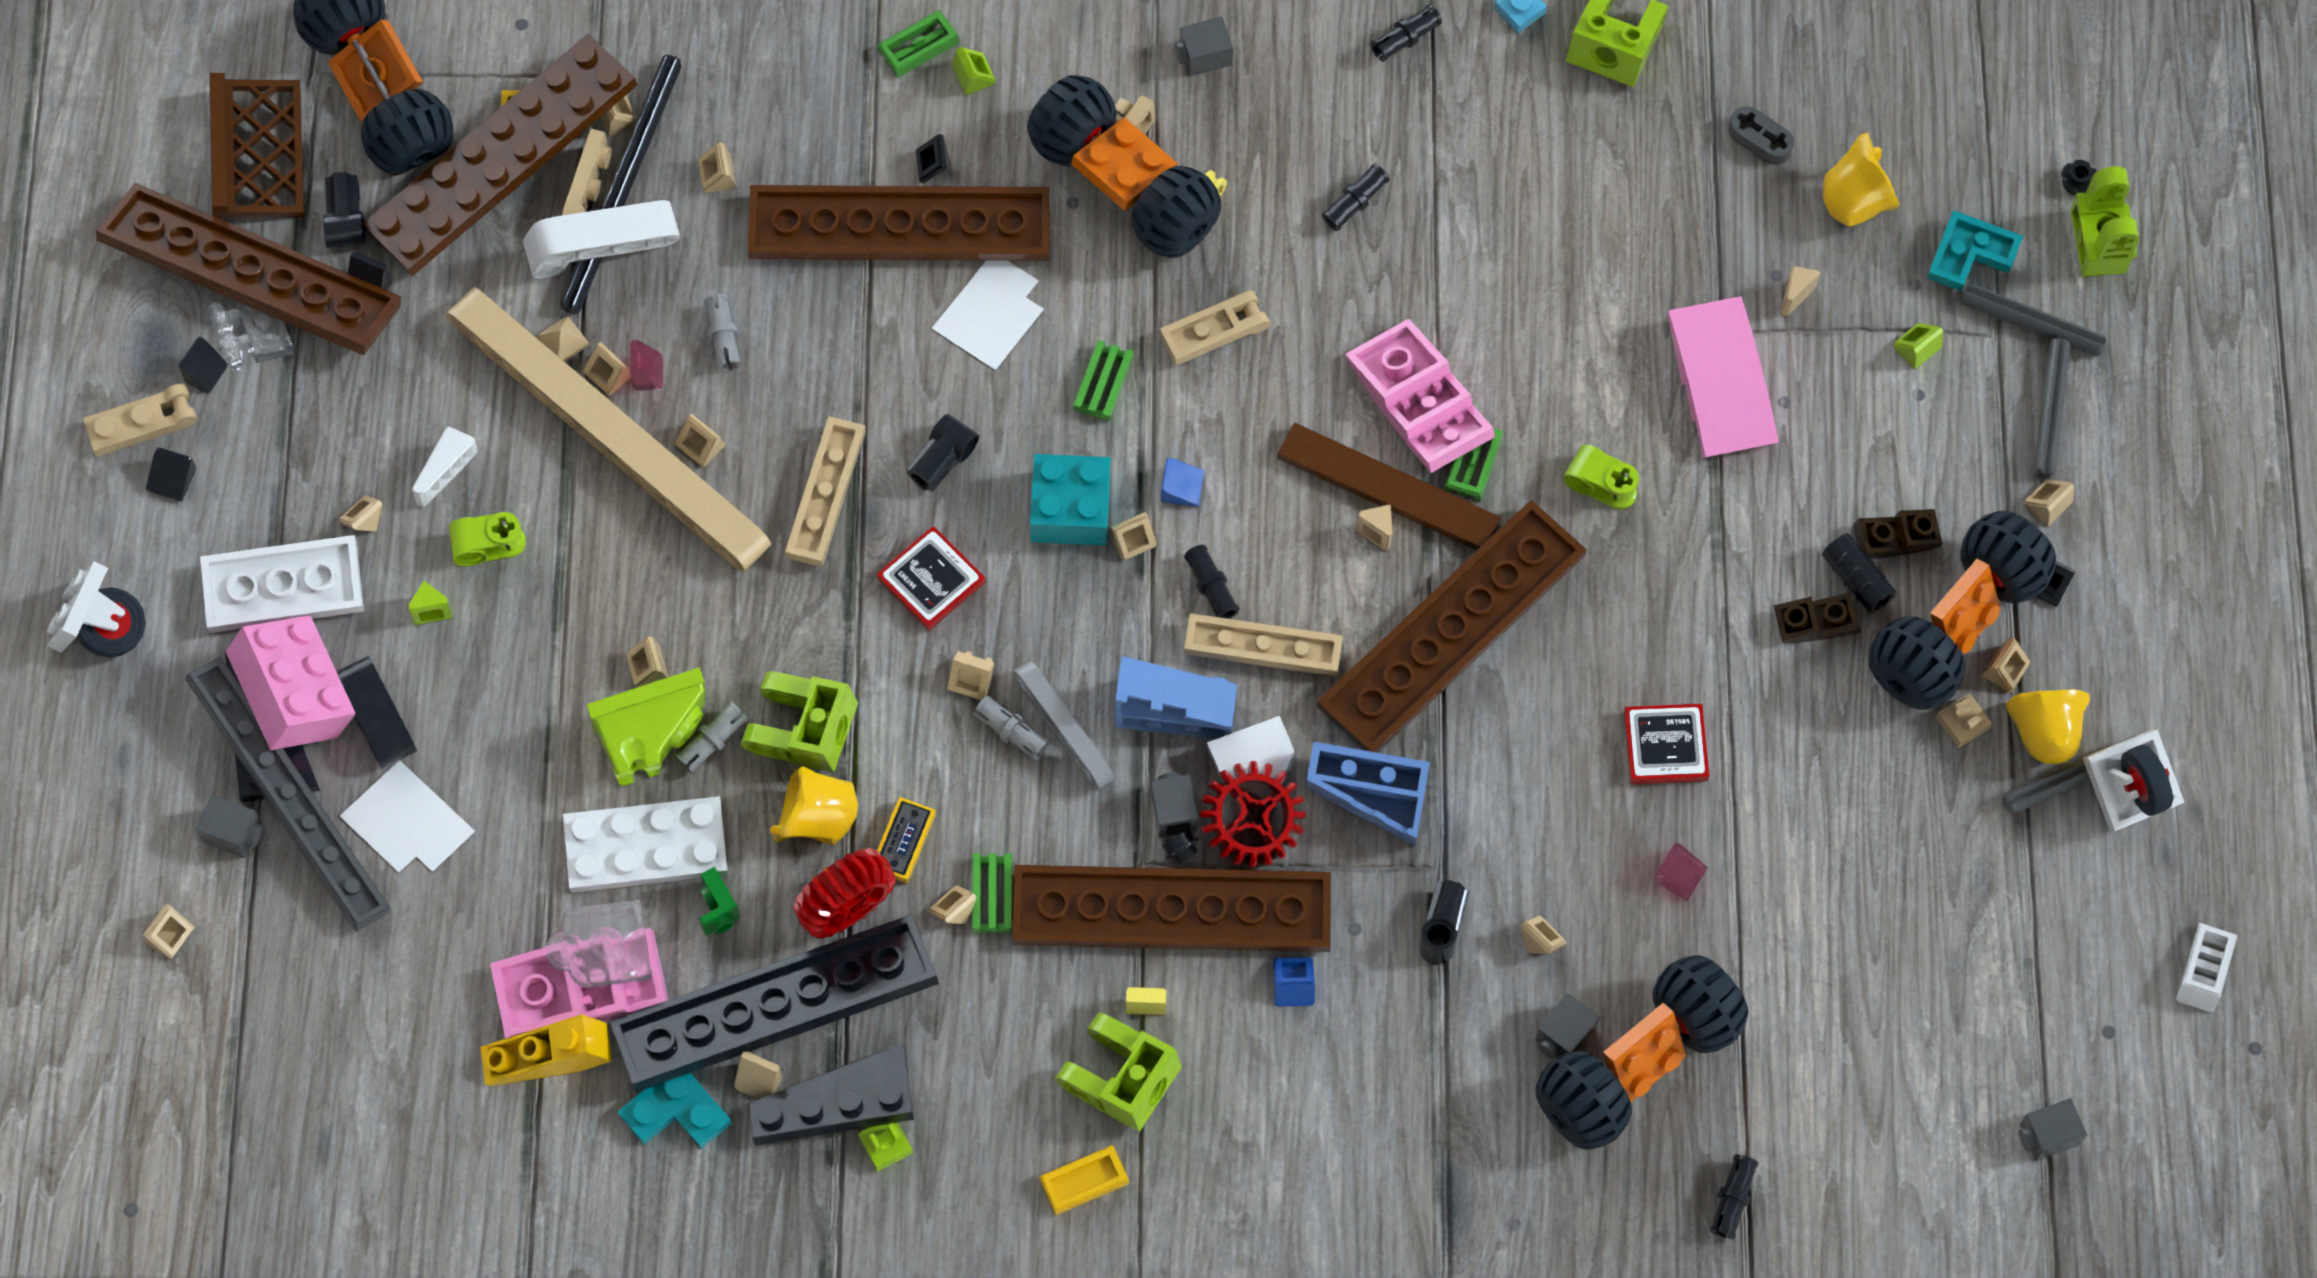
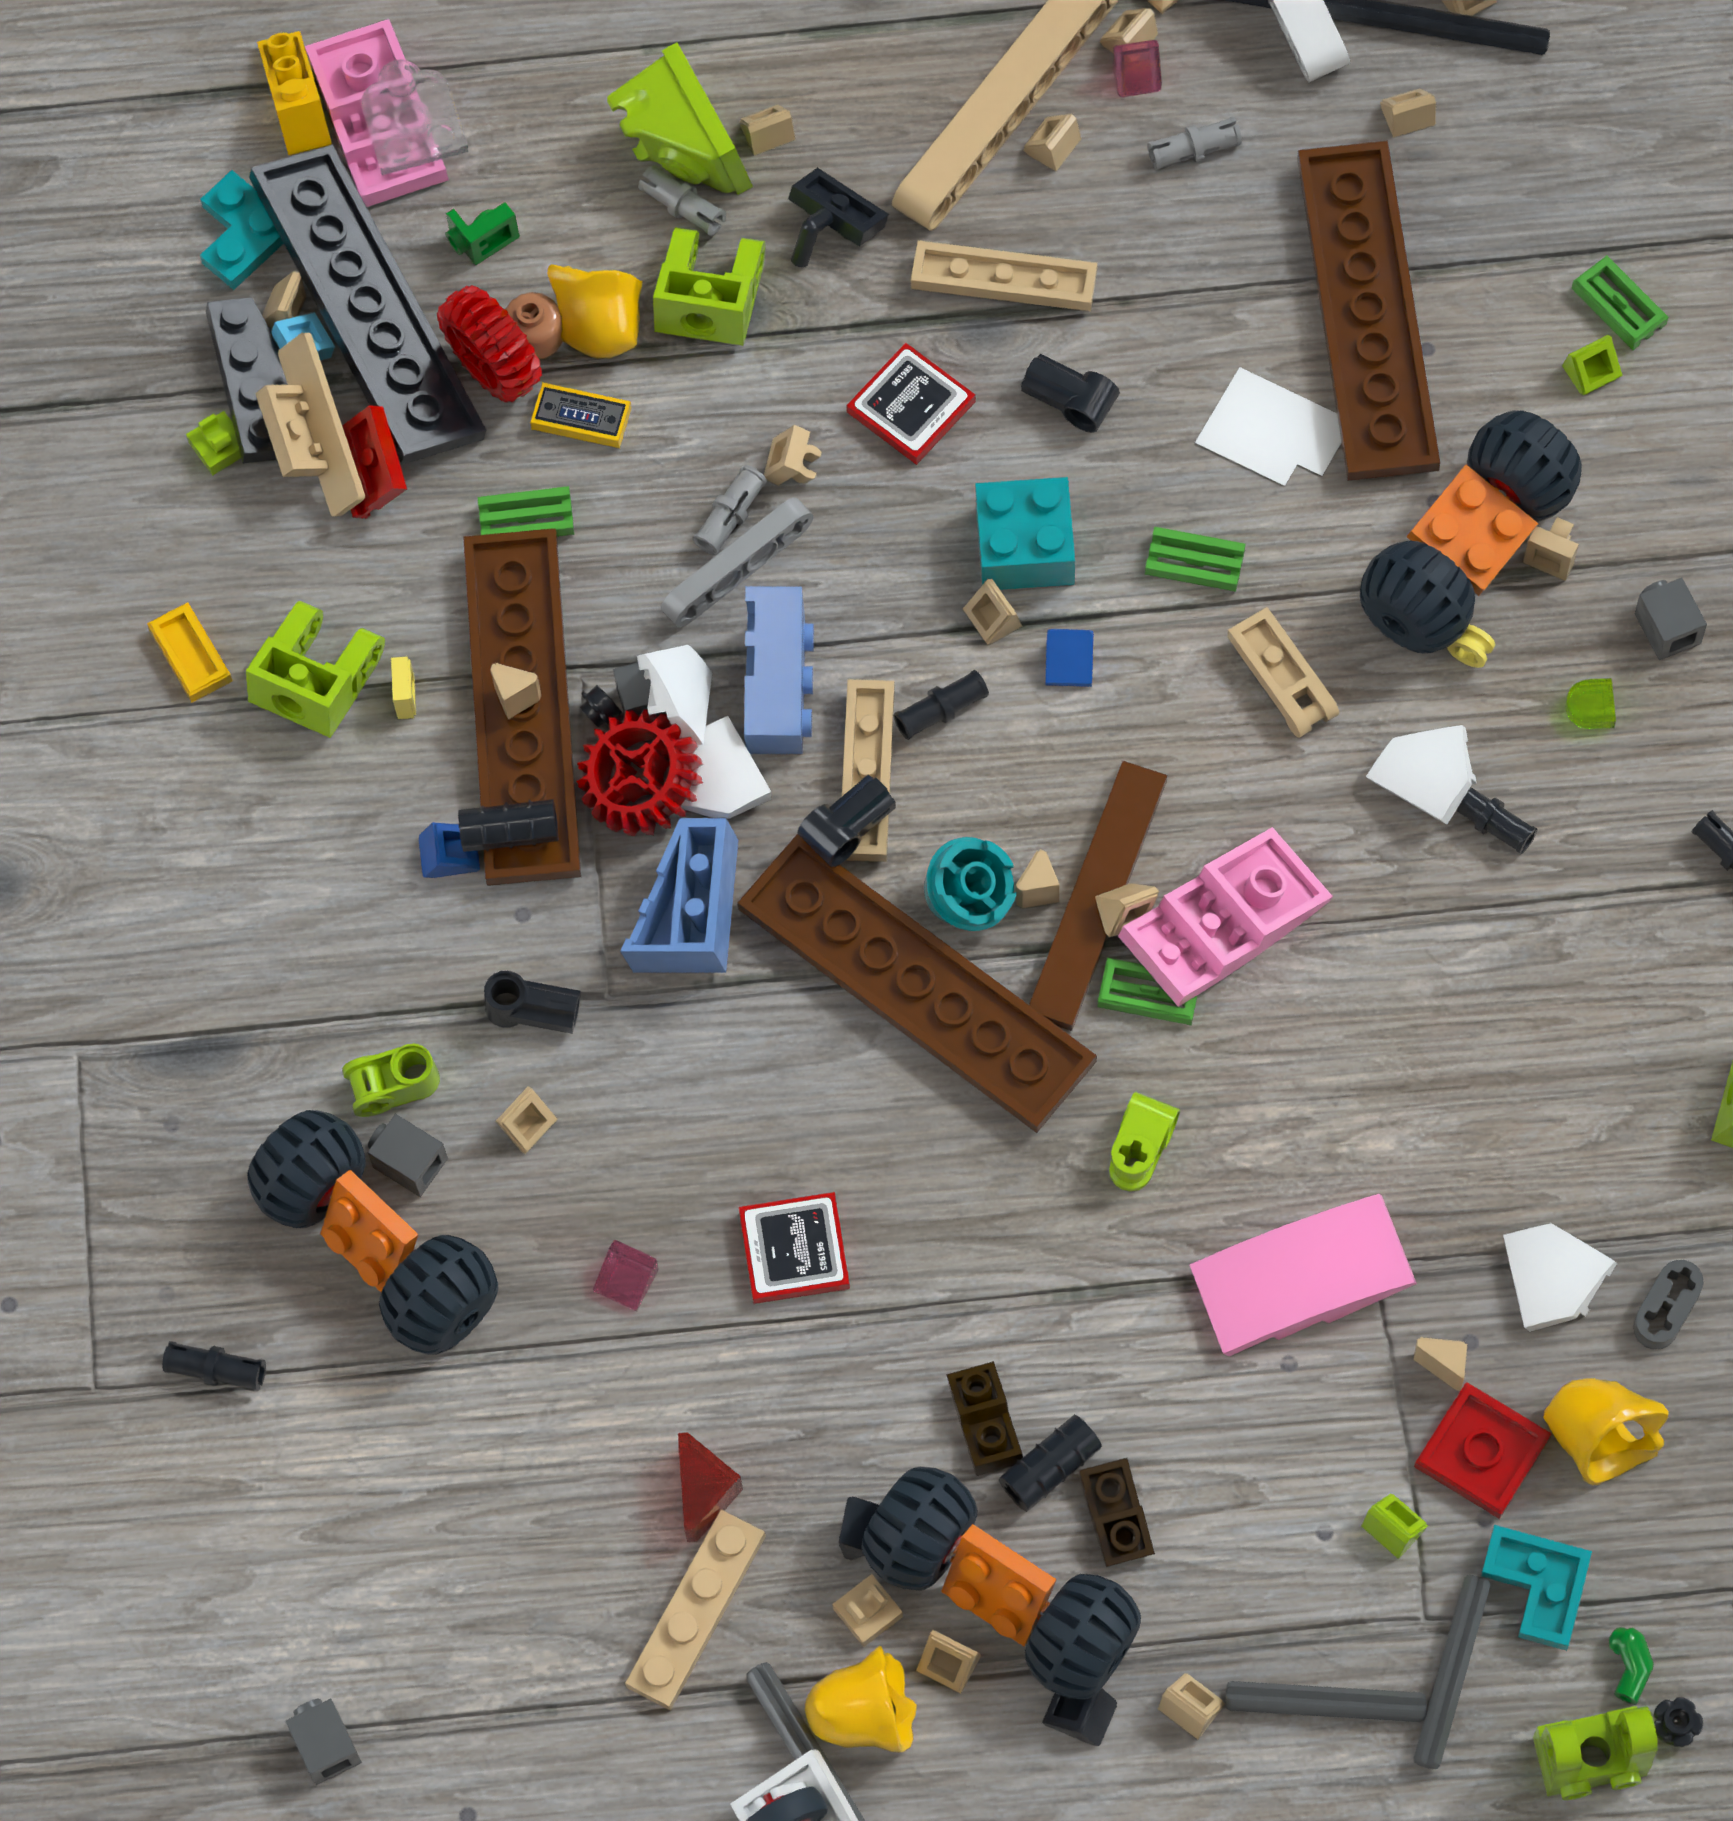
camera: 90 degrees right, 0 degrees up
(644, 844) = (550, 156): white plate -> none
(743, 612) = (833, 206): none -> black plate
(800, 1060) = (288, 329): none -> medium azure plate
(812, 854) = (539, 320): none -> nougat head
(896, 1051) = (308, 427): none -> tan bracket
(932, 158) = (1461, 336): black slope -> none
(932, 1010) = (374, 459): none -> red plate
(954, 906) = (501, 474): tan slope -> none
(1169, 904) = (515, 688): none -> tan slope
(1186, 773) = (679, 688): none -> white slope
(1266, 114) = (1591, 704): none -> clear neon green tile
(1292, 918) = (508, 825): none -> black axle
(1315, 233) = (1427, 770): none -> white slope
(1323, 664) = (837, 829): none -> black piece
(1381, 573) = (970, 884): none -> teal cone
(1406, 462) = (1124, 905): none -> tan slope
(1499, 1044) = (387, 1079): none -> lime piece
(1733, 207) = (1554, 1274): none -> white slope
(1863, 827) = (705, 1484): none -> clear red slope
(1865, 276) = (1483, 1450): none -> red tile
(1905, 714) = (855, 1521): none -> black slope
(1956, 845) = (695, 1610): none -> tan plate
(2034, 196) = (1637, 1661): none -> green arm

